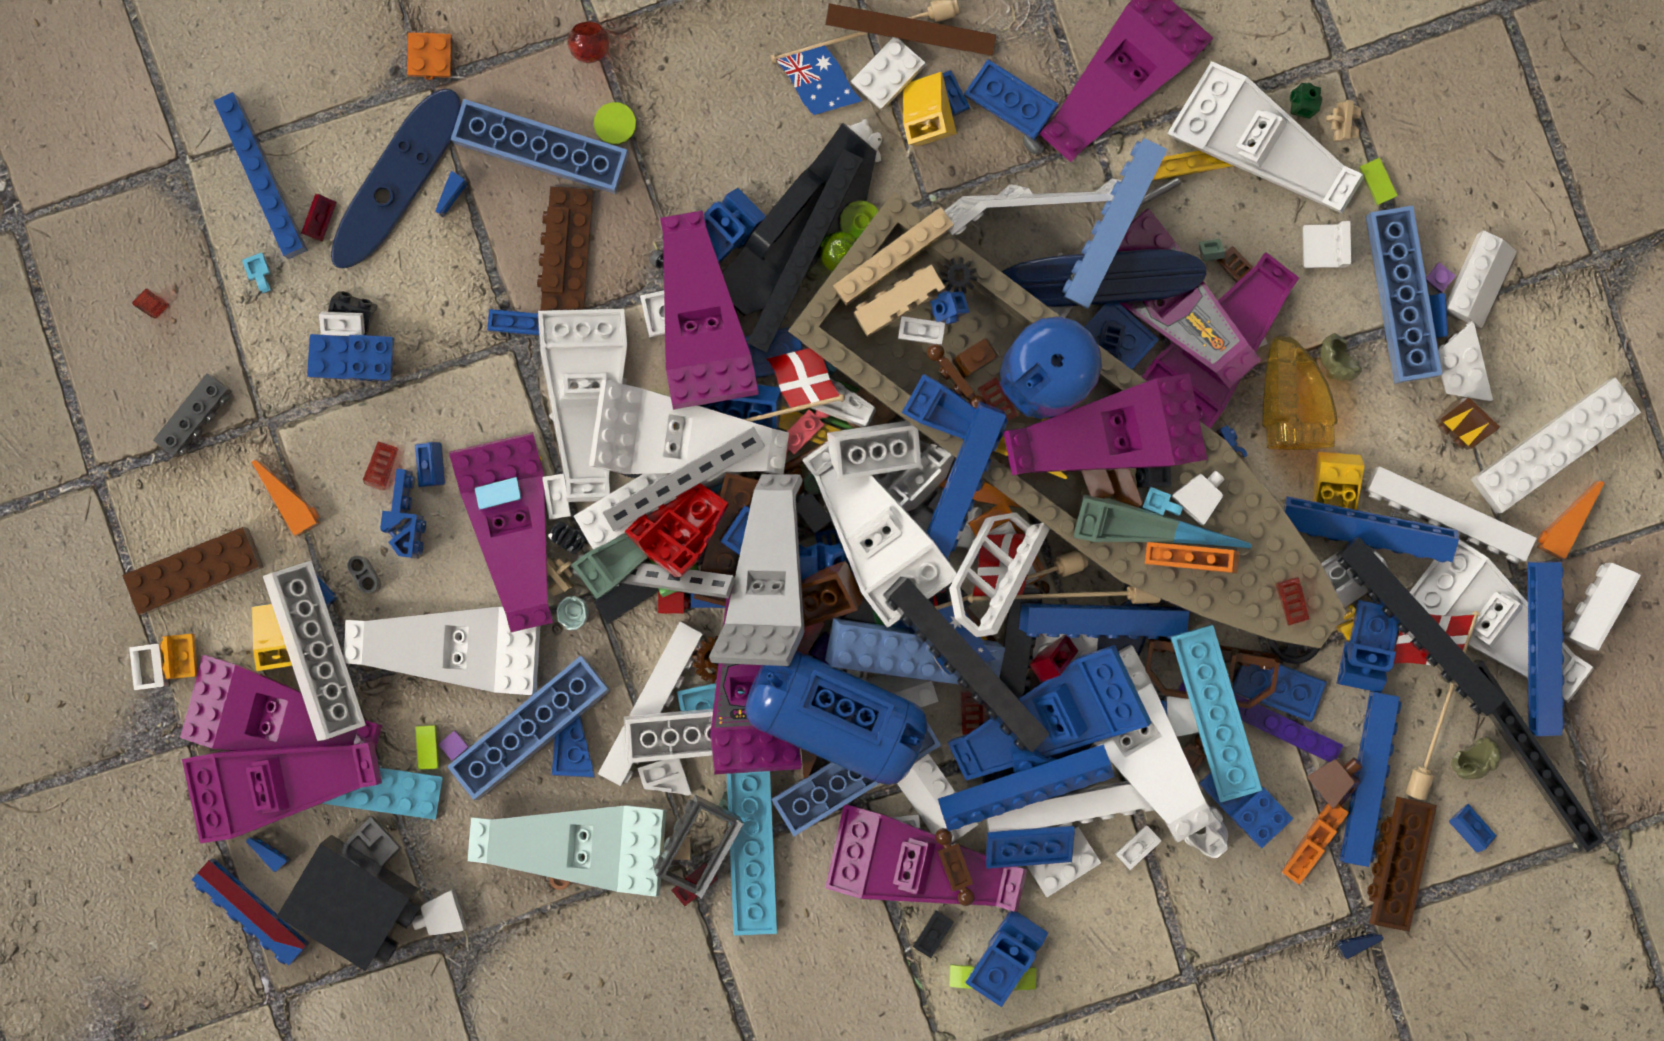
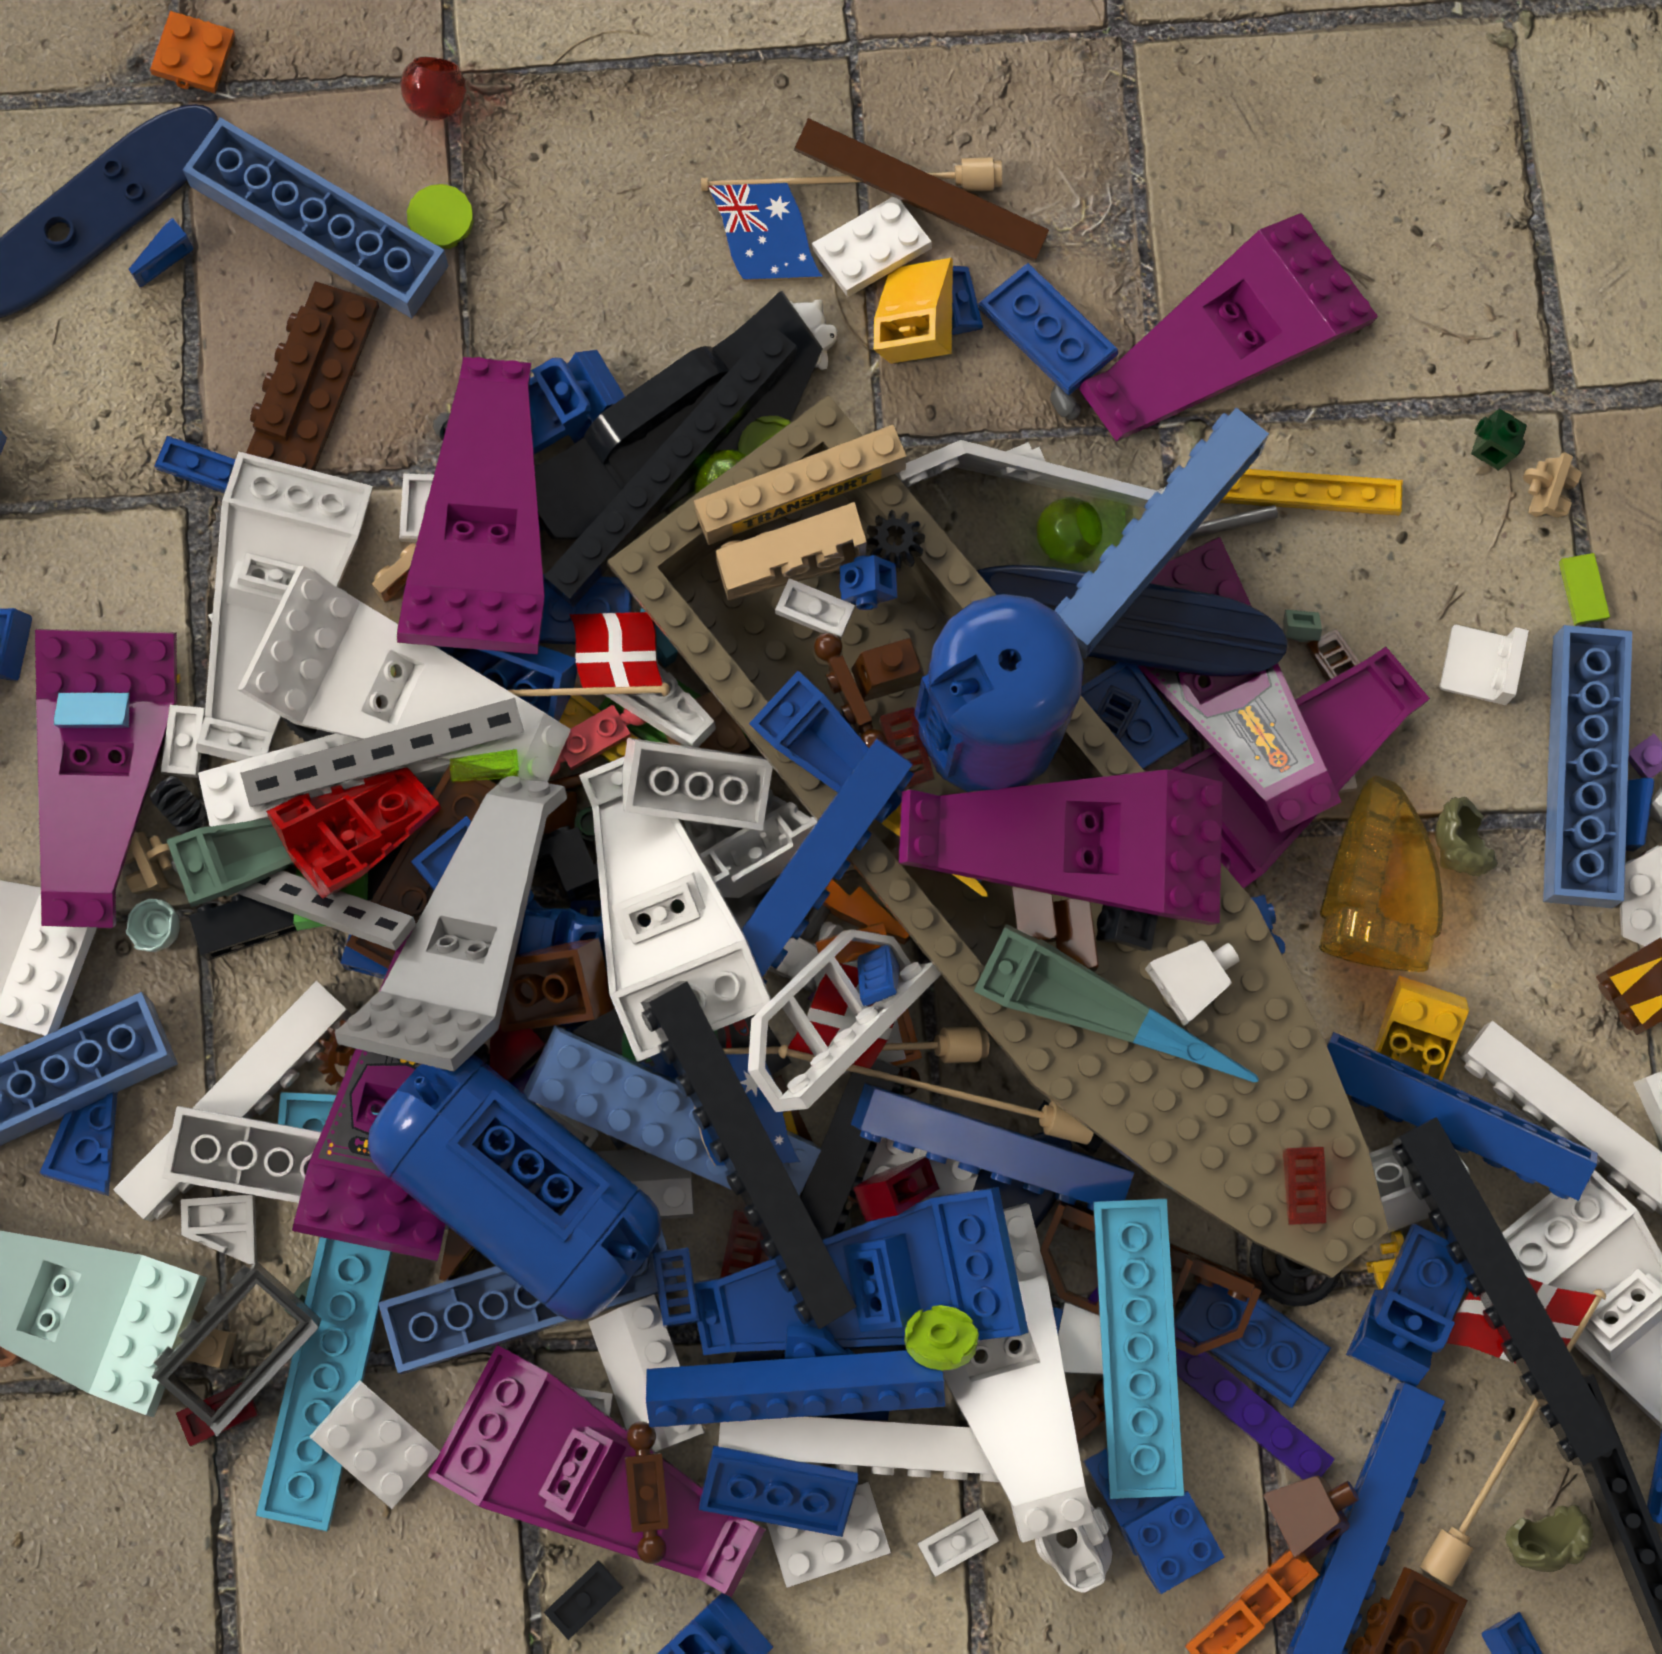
camera: 10 degrees right, 10 degrees down
(652, 364) = (393, 579): none -> tan plate
(673, 603) = (315, 951): red brick -> none
(747, 471) = (485, 766): none -> clear neon green piece
(790, 878) = (375, 1444): none -> white plate
(941, 766) = (680, 1318): none -> blue slope
(1013, 539) = (877, 975): none -> blue slope
(1056, 228) = (1069, 530): none -> clear neon green helmet
(1102, 738) = (941, 1338): none -> lime tile
(1158, 502) = (1125, 971): medium azure plate -> none
(1192, 557) = (1159, 1073): orange slope -> none
(1228, 116) = (1373, 433): white wing -> none

